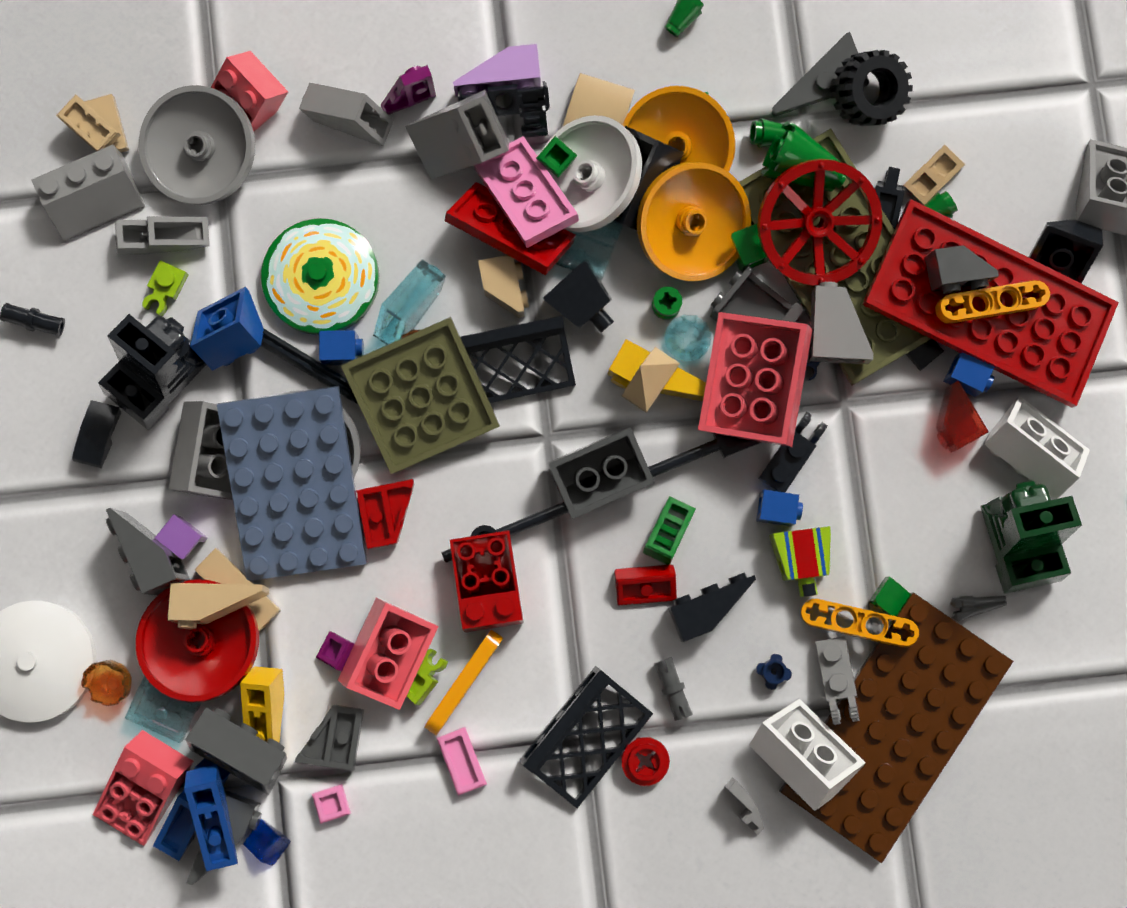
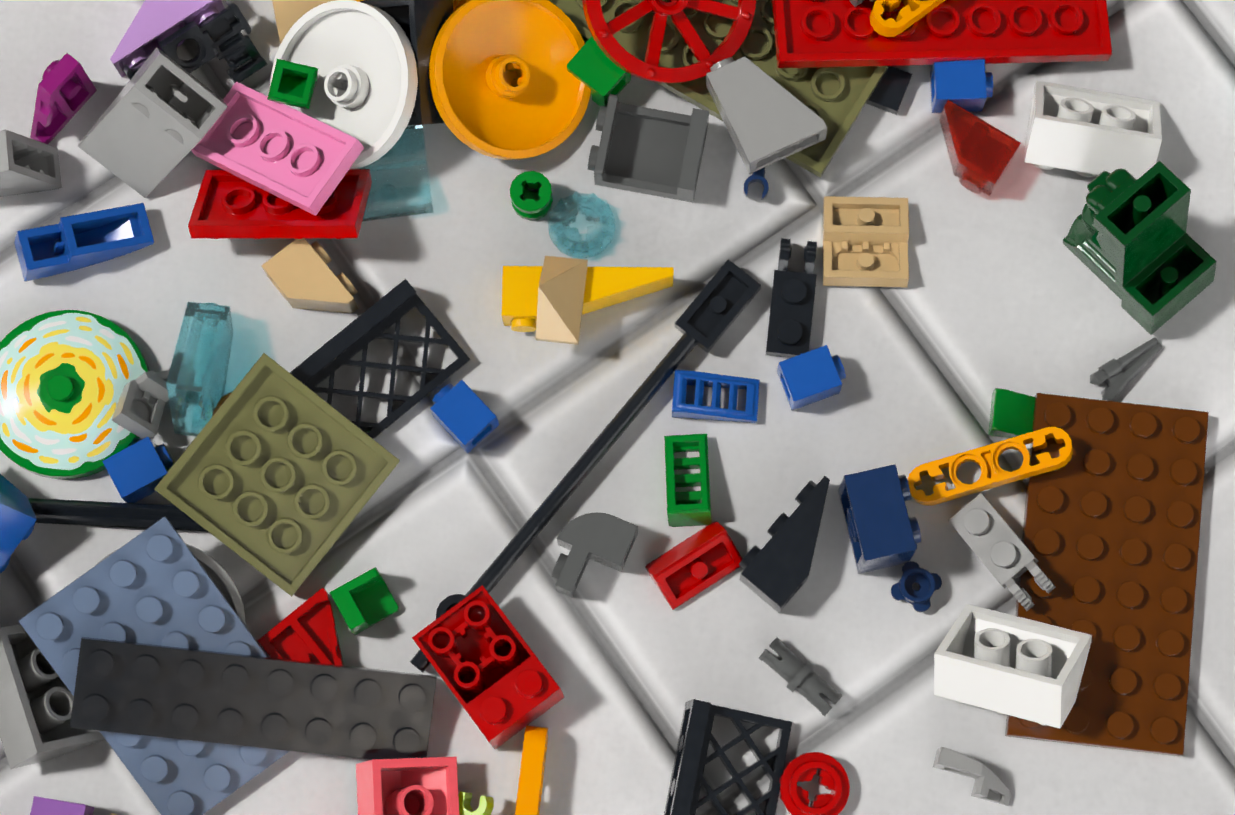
camera: 20 degrees left, 5 degrees down
(333, 527) = (251, 700): none -> black plate
(362, 308) = (143, 404): none -> light grey slope
(378, 186) = (82, 241): none -> blue slope
(433, 500) = (364, 601): none -> green panel
(553, 417) = (463, 415): none -> blue brick
(581, 297) = (419, 244): black torso -> none
(592, 535) = (595, 538): none -> dark grey brick
(600, 472) = (560, 450): dark grey slope -> none
(698, 491) = (716, 381): none -> blue slope
(755, 378) = (693, 228): coral slope -> none
(773, 619) = (879, 518): none -> dark blue slope
(803, 556) = (874, 421): torso -> none
(858, 441) = (865, 241): none -> tan slope

